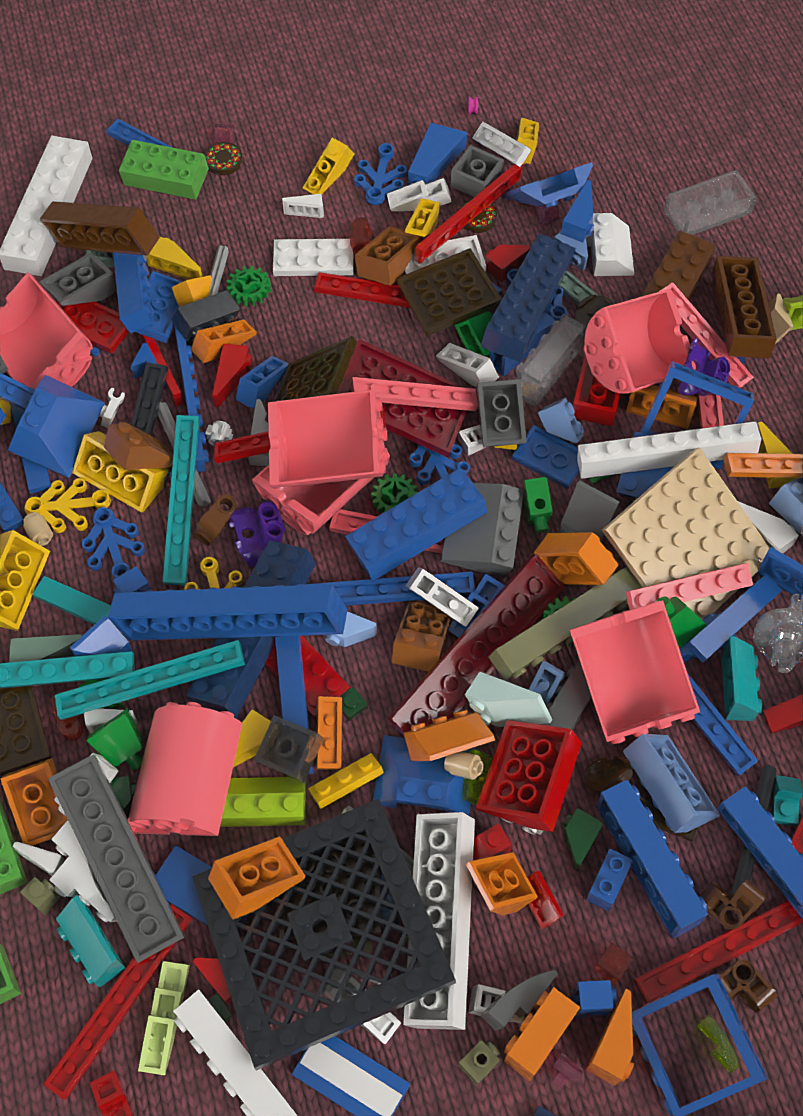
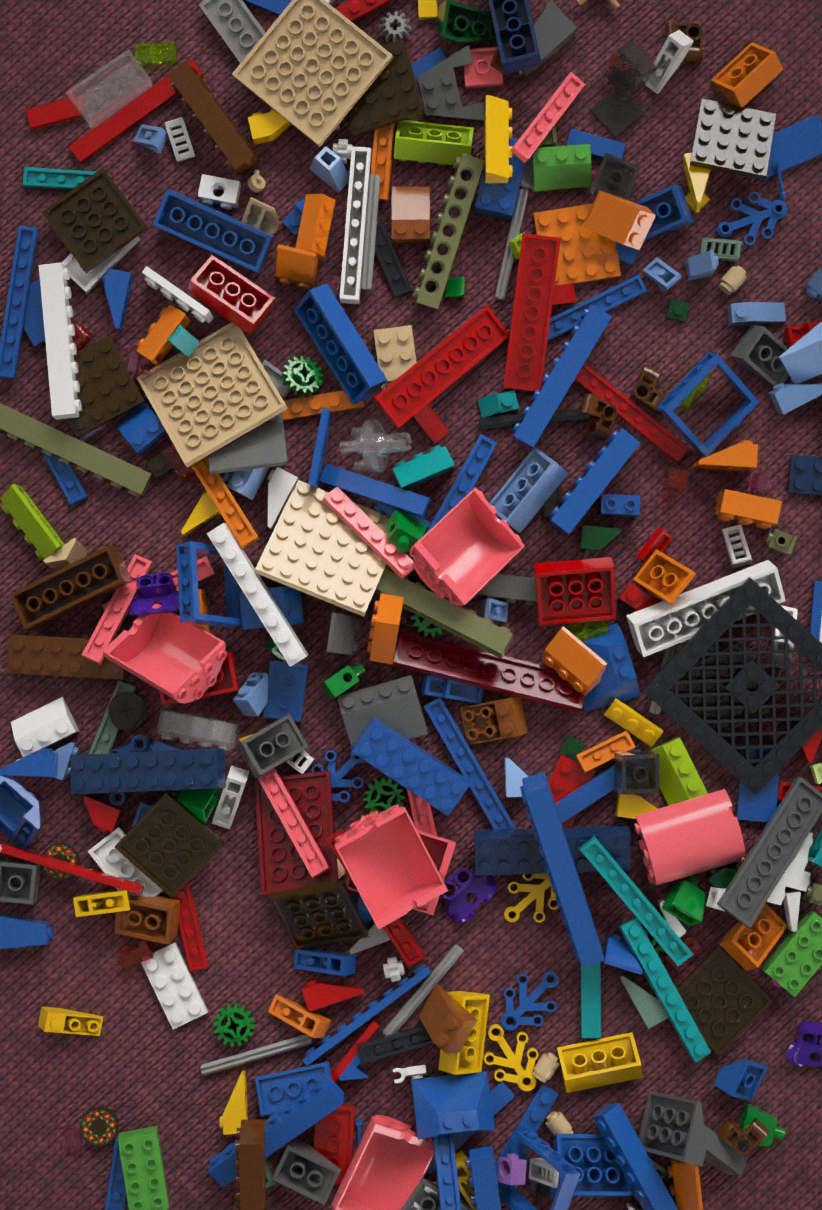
camera: 115 degrees left, 25 degrees up
(131, 581) = (559, 963): blue brick -> none
(181, 500) = (470, 965): teal plate -> none
(192, 290) = (266, 1067): light orange slope -> none
(205, 313) = (288, 1041): black brick -> none
(214, 520) = (481, 926): reddish brown piece -> none
(254, 876) = (740, 746): orange slope -> none
(304, 206) = (122, 1019): white slope -> none
(375, 194) = (57, 970): blue plant -> none
(408, 197) = (64, 923): white slope -> none
(442, 596) = (461, 720): white slope -> none
(464, 765) = (591, 638): tan brick -> none
(503, 701) = (529, 641): light aqua slope -> none
(517, 1000) = (730, 533): dark grey slope -> none
(594, 998) = (708, 483): blue brick -> none
(607, 773) = (542, 536): dark brown tile -> none

